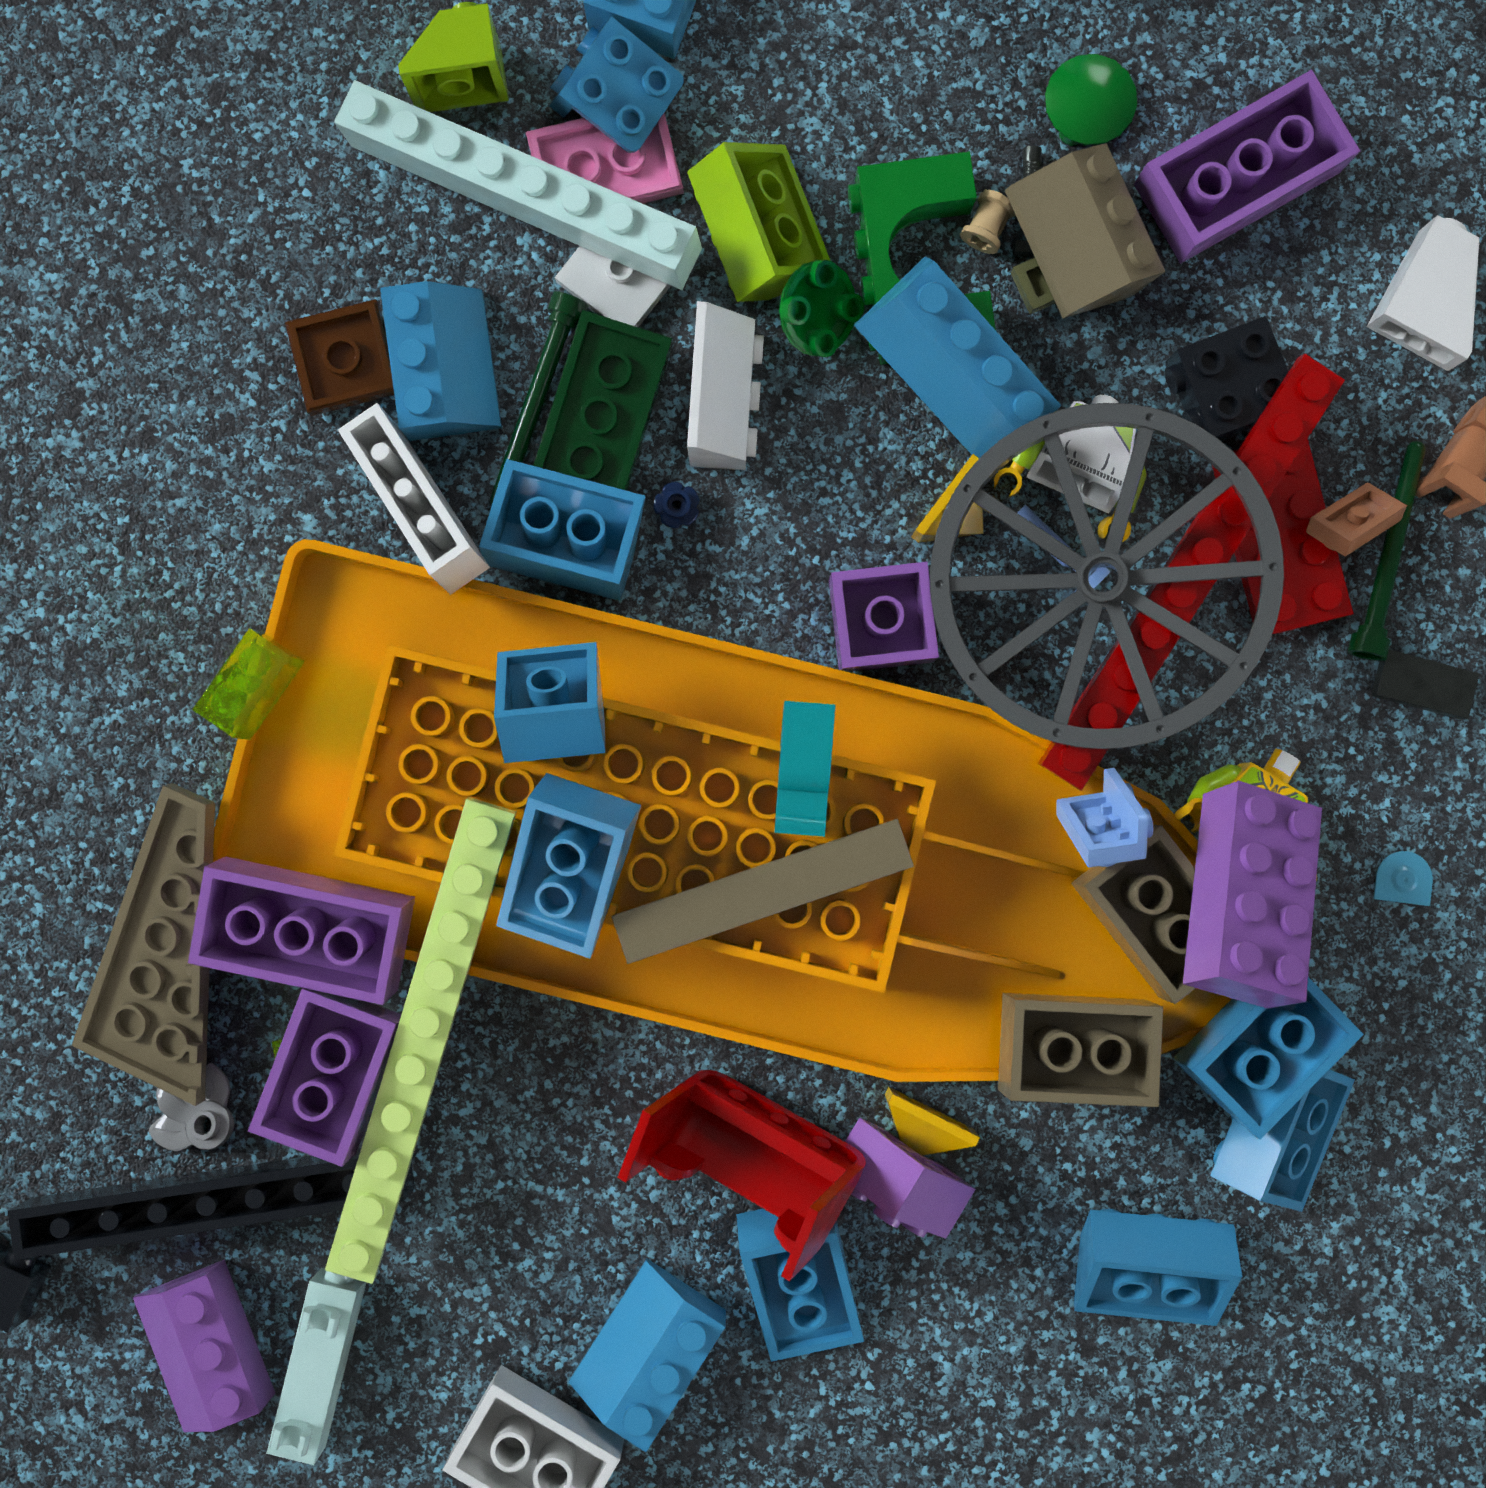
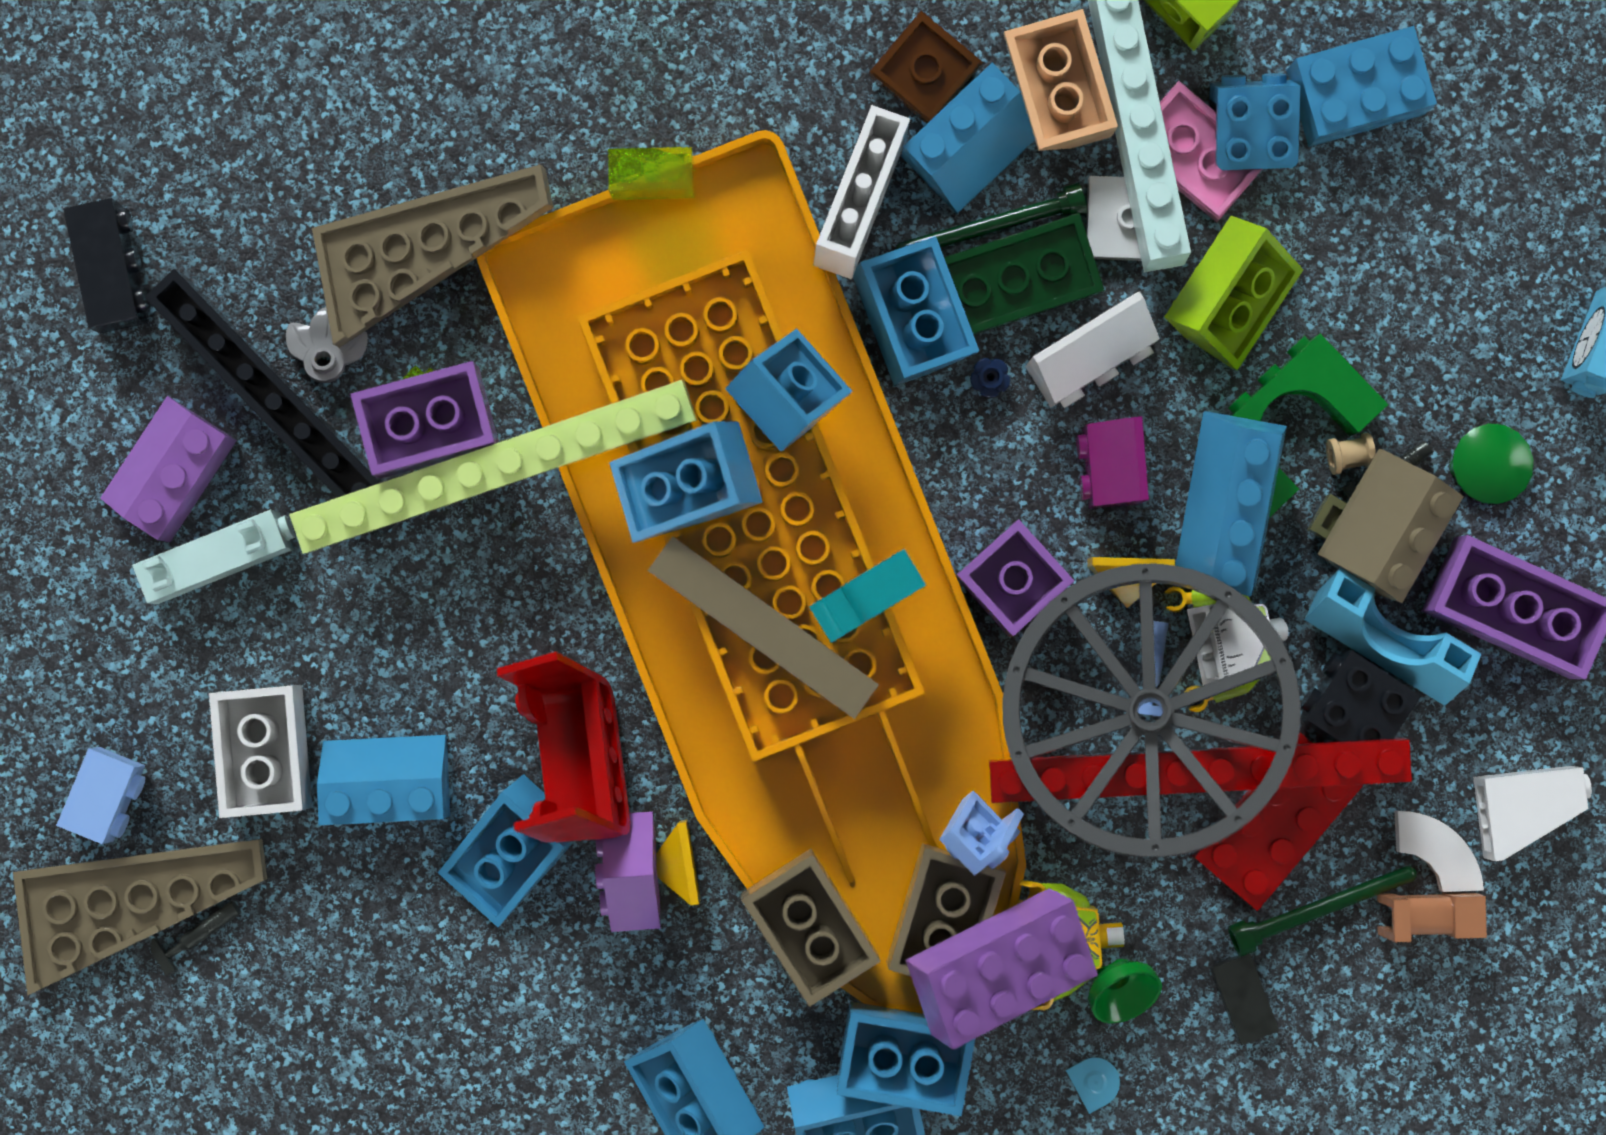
camera: 50 degrees right, 0 degrees up
(301, 930) = (510, 331): medium lavender brick -> none
(447, 236) = (1061, 82): none -> light nougat slope
(819, 308) = (1201, 378): green dish -> none
(841, 445) = (1113, 463): none -> magenta slope
(1240, 286) = (1432, 664): none -> medium azure arch
(1343, 791) = (1123, 991): none -> green piece
(1356, 519) = (1324, 863): nougat plate -> none
(1414, 403) = (1441, 850): none -> white tile

